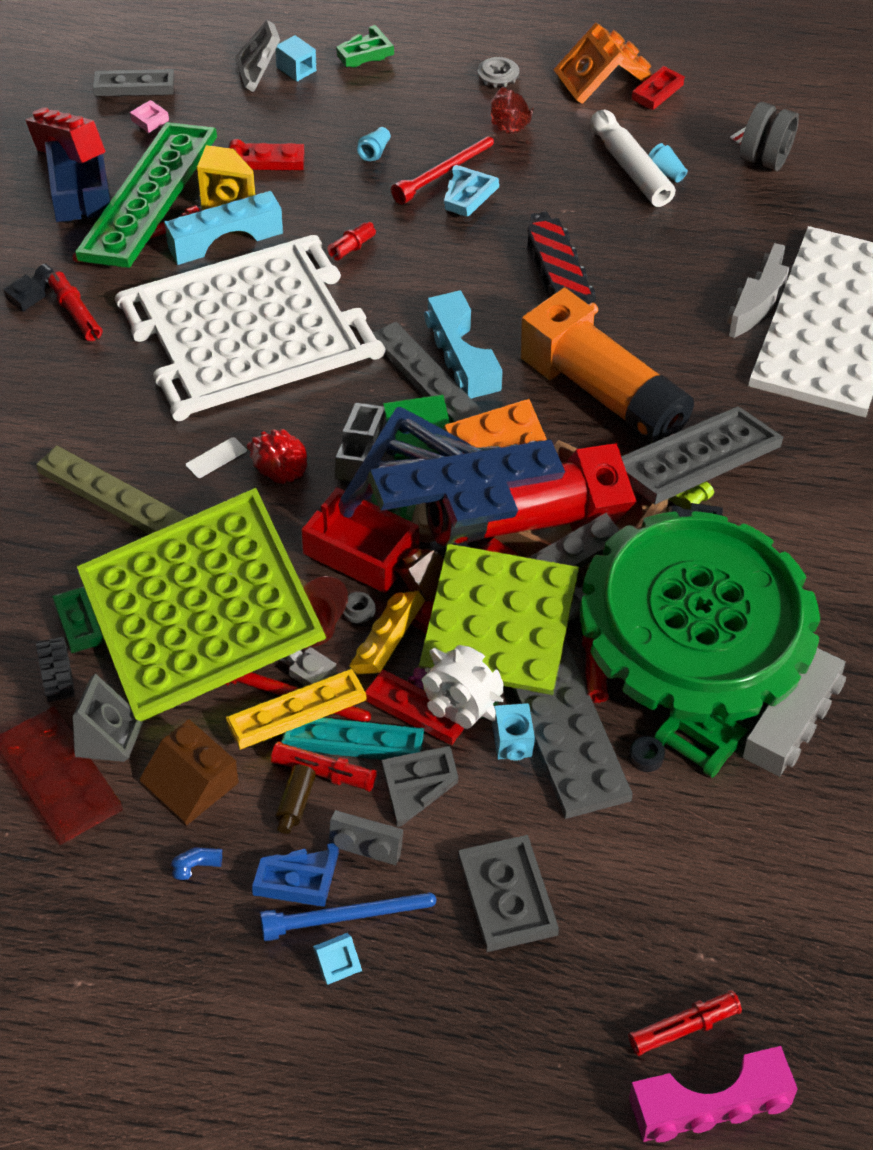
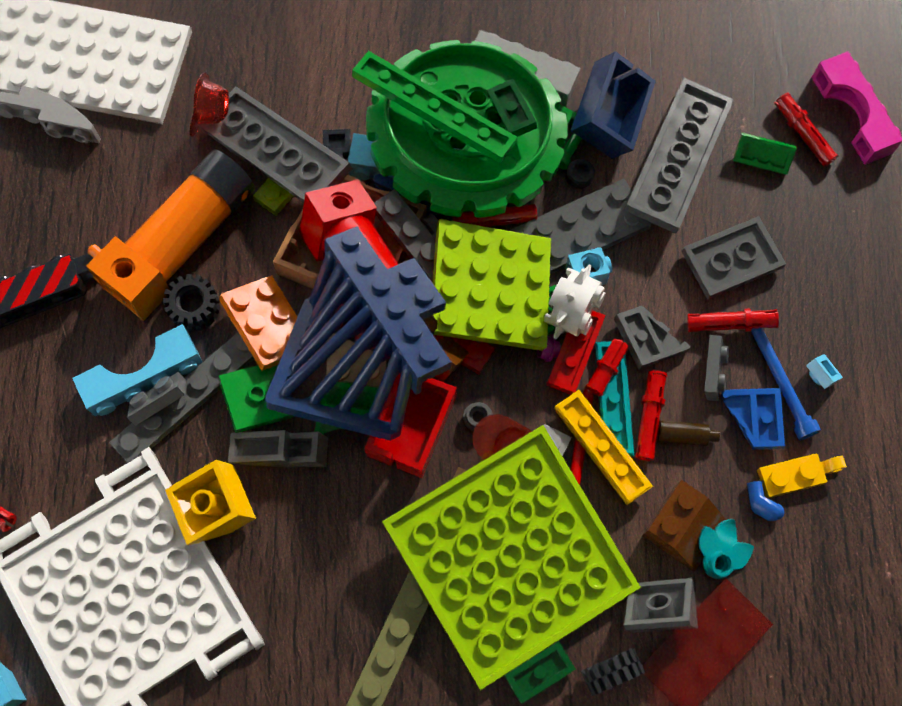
camera: 100 degrees left, 20 degrees up
(156, 810) = (723, 545): none -> teal plate
(216, 457) = (308, 590): white sticker -> none
(219, 906) = (798, 474): none -> yellow plate
(278, 455) = (307, 525): red hair -> none
(316, 383) = (210, 503): none -> yellow slope
(386, 724) = (607, 367): none -> red axle
(387, 632) = (504, 385): yellow plate -> none
(420, 879) = (733, 320): none -> red pin
(430, 350) = (161, 395): none -> dark grey plate
(532, 376) = (184, 288): none -> black tyre
(650, 959) = (764, 153): none -> green plate
(657, 854) = (679, 155): none -> dark grey plate
(703, 634) = (512, 108): none -> dark green plate
(704, 556) = (434, 107): none -> green plate
(725, 780) = (613, 107): none -> dark blue piece
(755, 399) = (210, 104): none -> clear red piece

